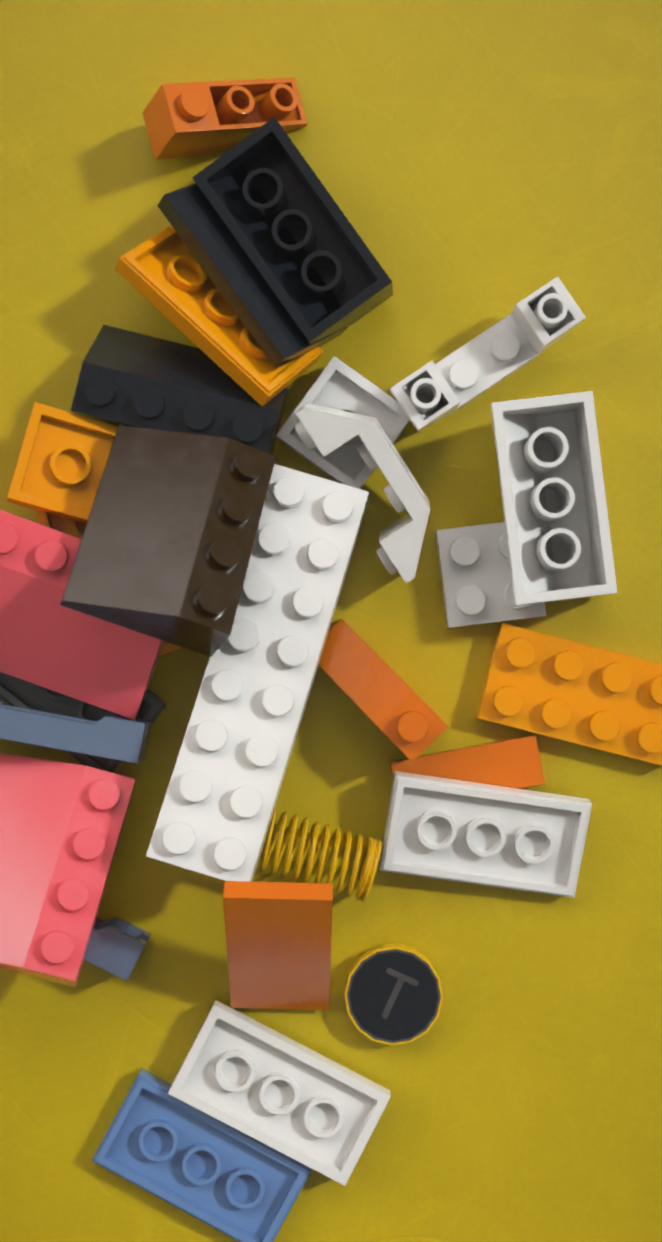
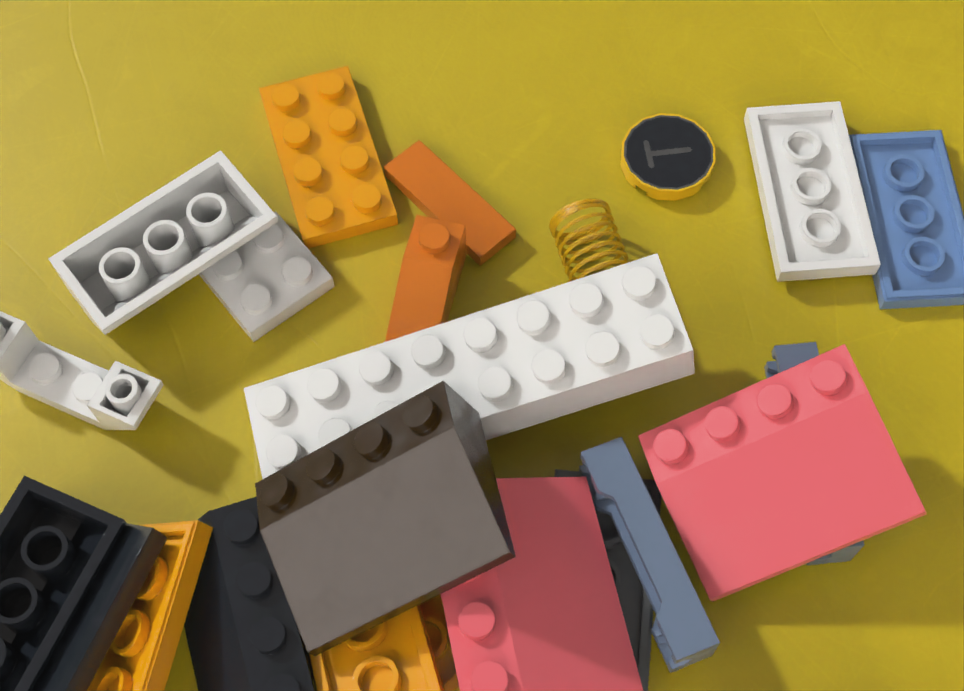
camera: 120 degrees left, 25 degrees down
(278, 944) = (687, 227): orange tile -> none
(330, 429) = (265, 346): white slope -> none
(347, 391) = (192, 461): white plate -> none
(484, 834) = (490, 159): white tile -> none

